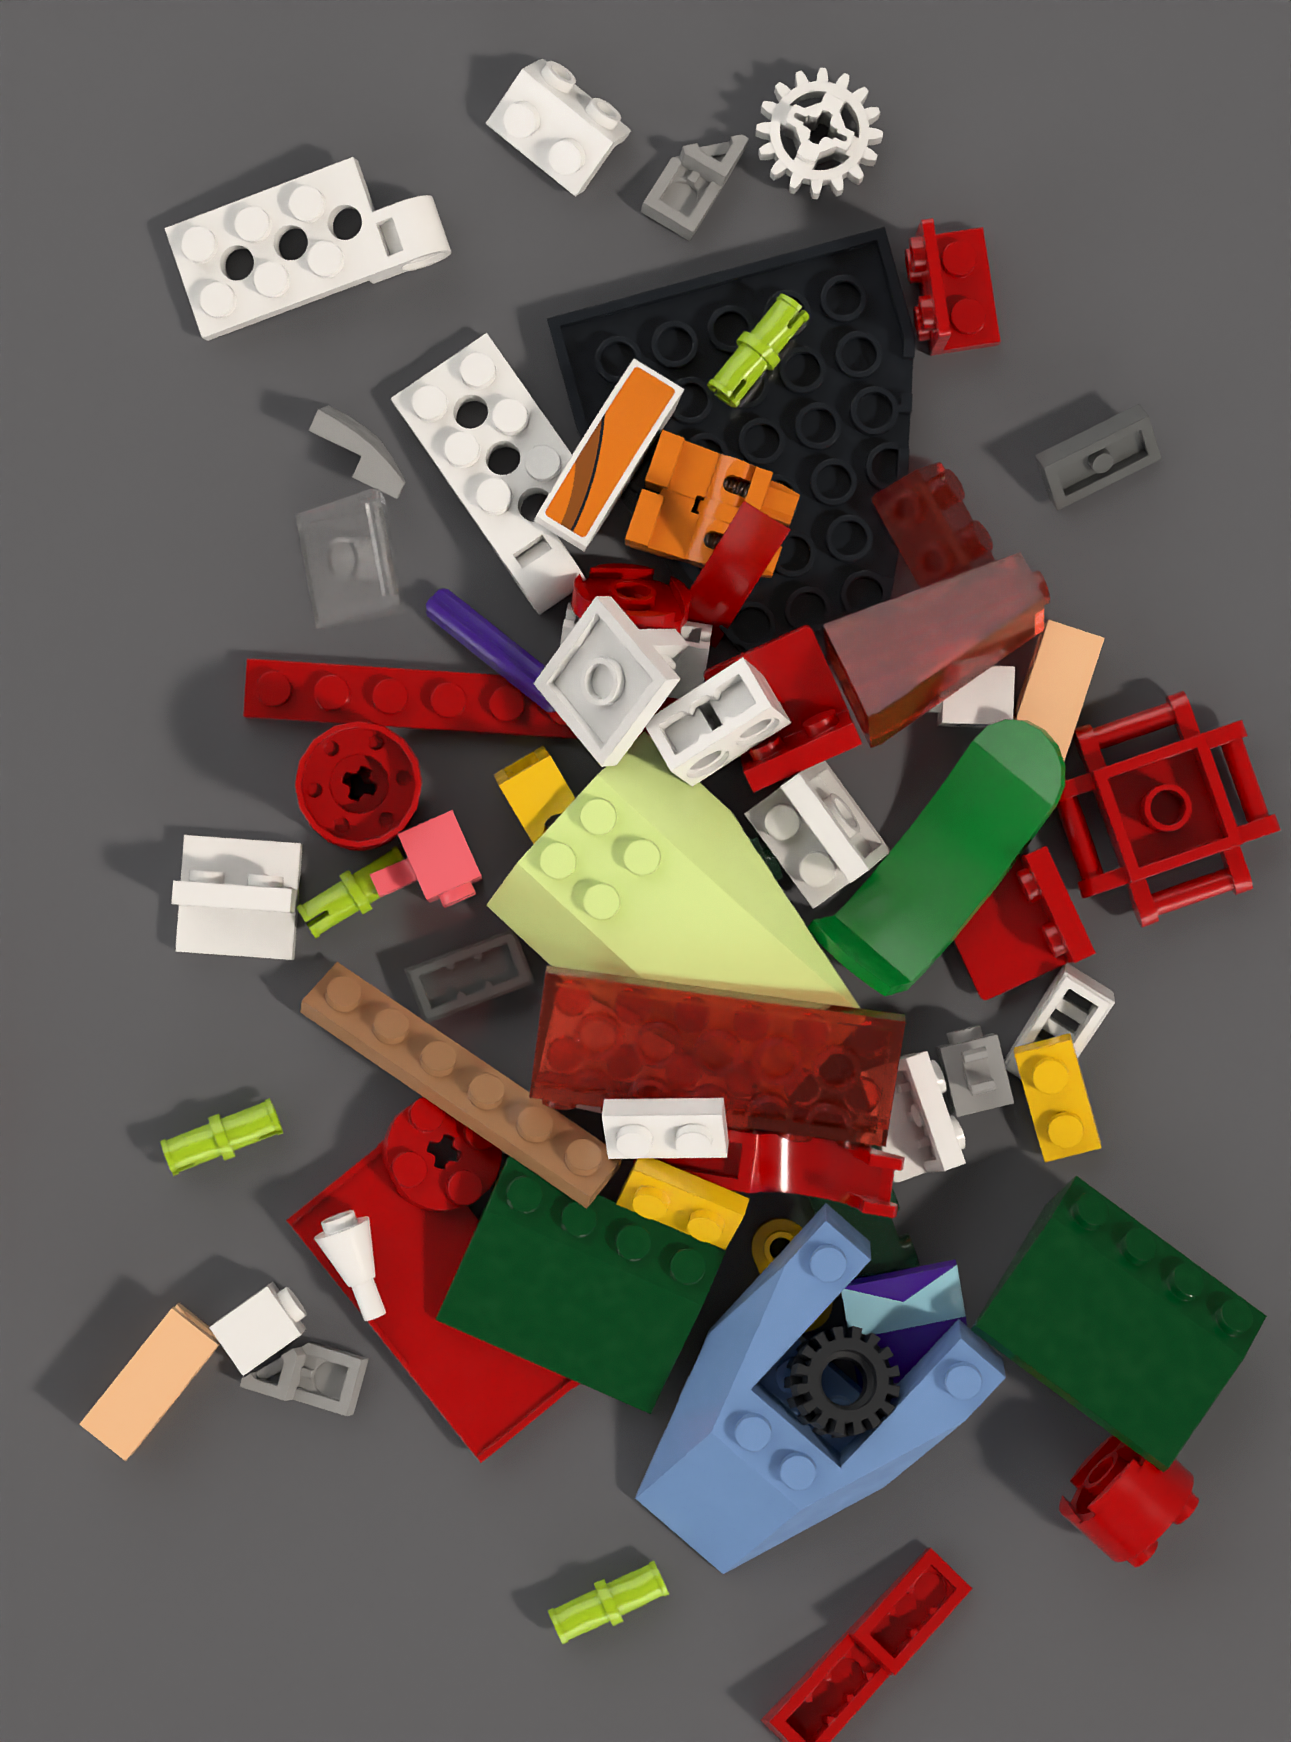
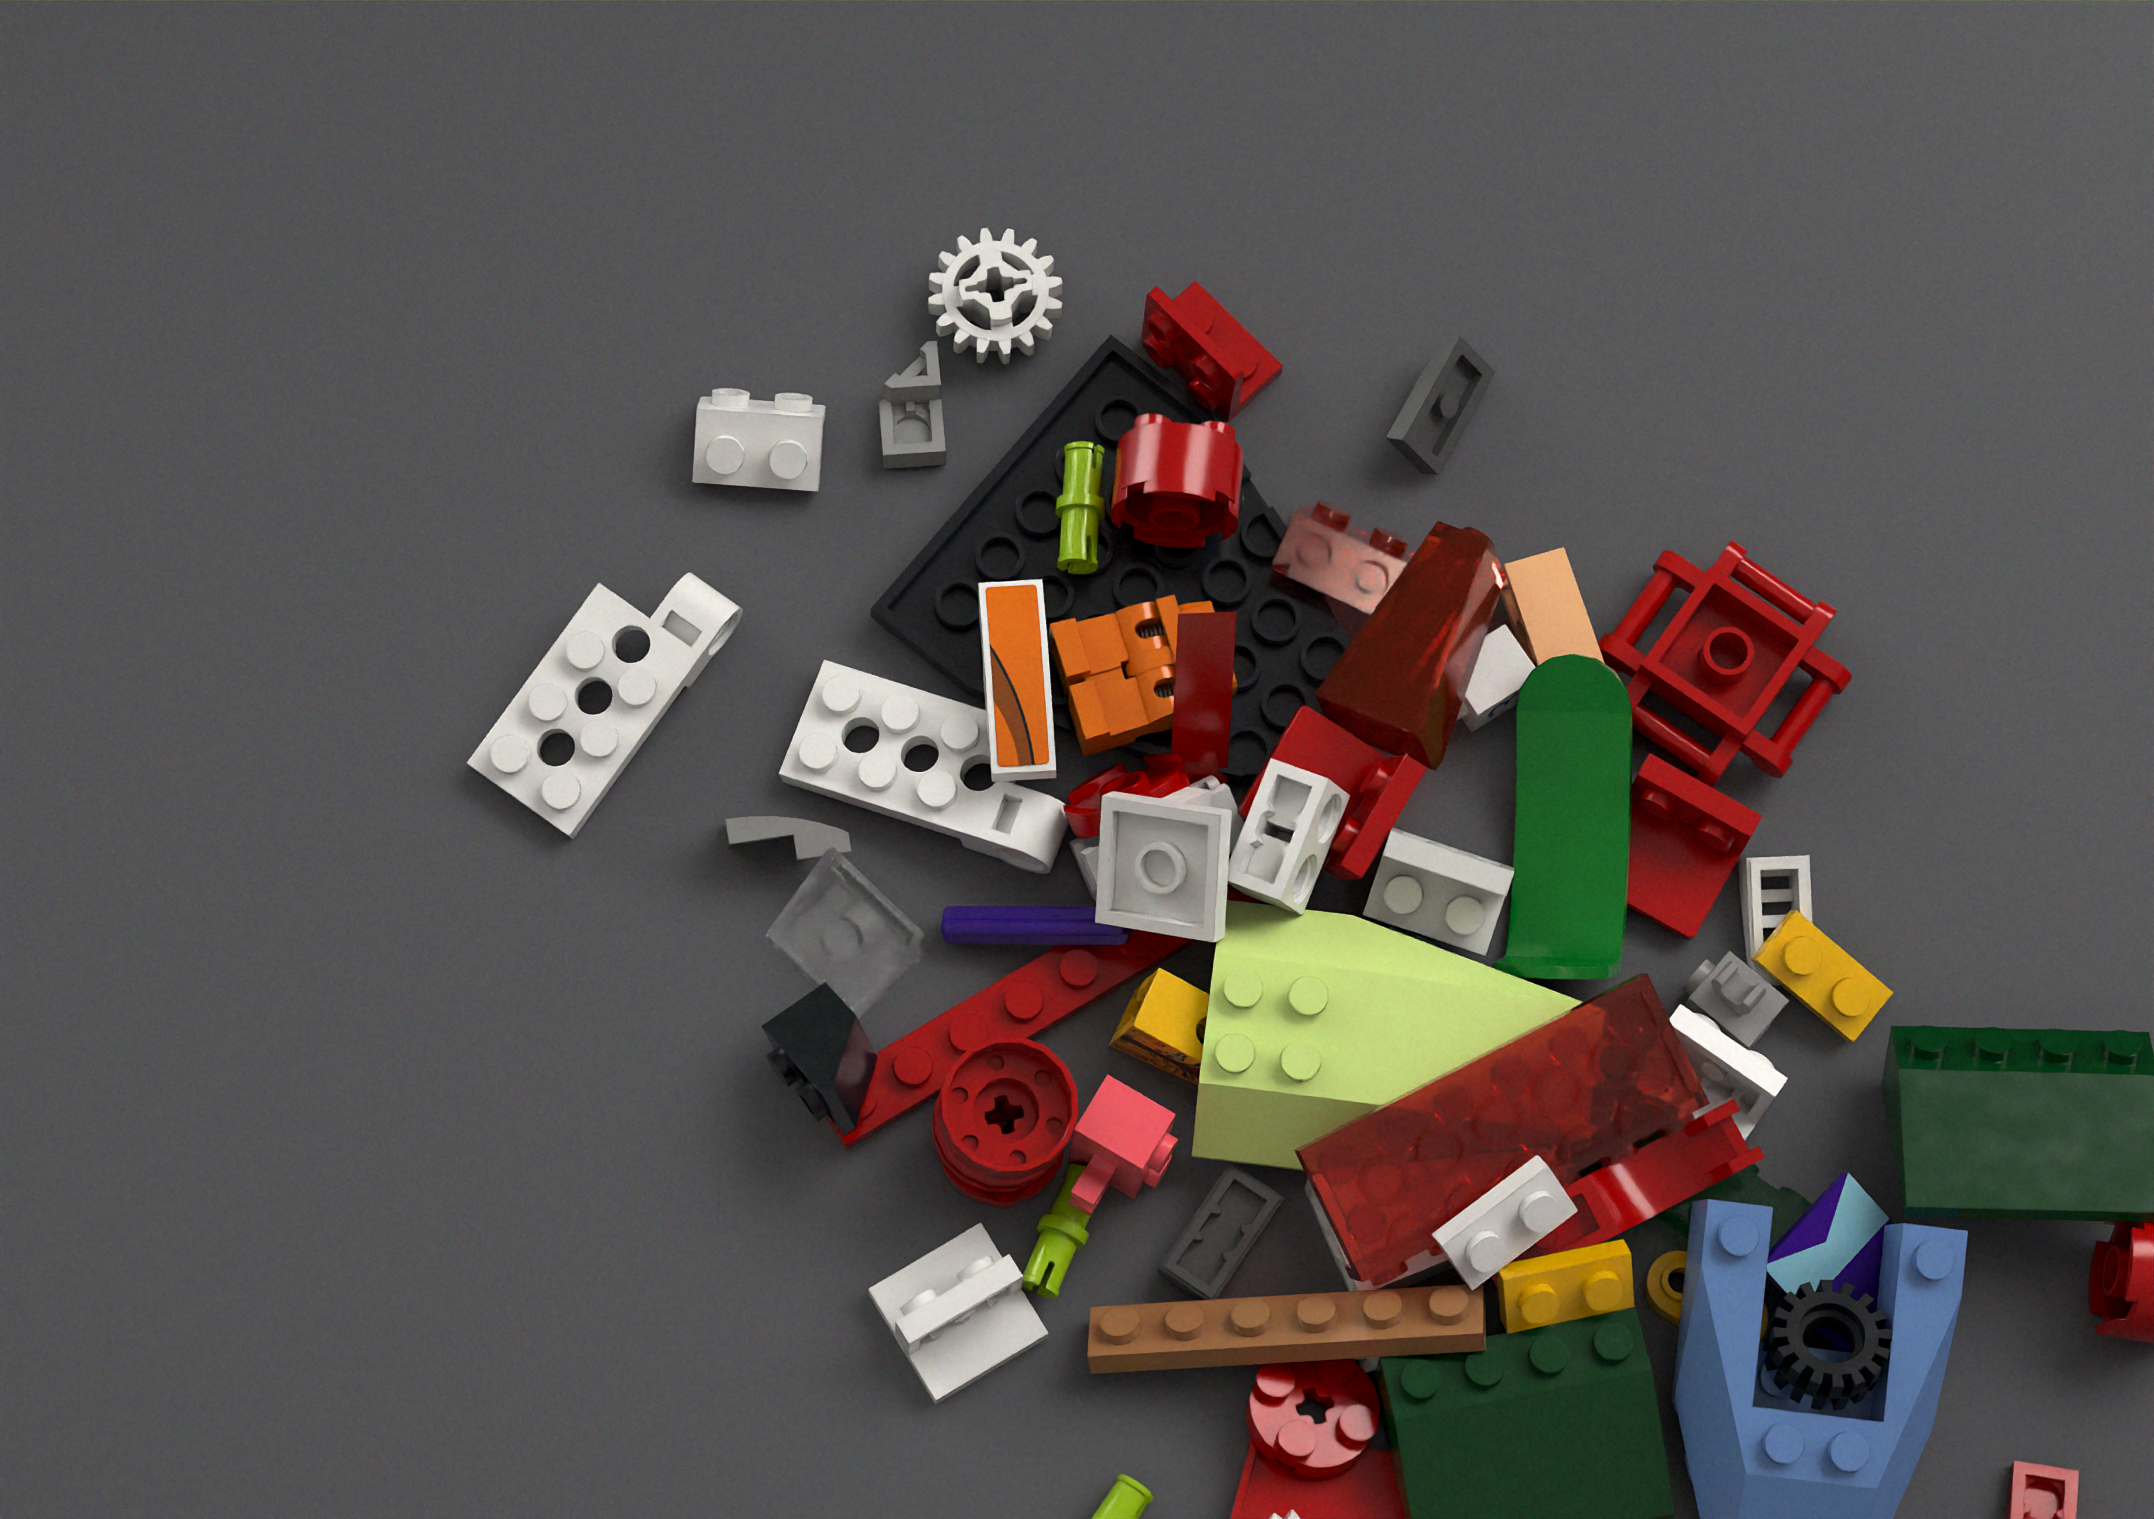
camera: 35 degrees left, 15 degrees down
(268, 640) = (824, 1052): none -> black slope
(841, 383) = (1177, 481): none -> red brick

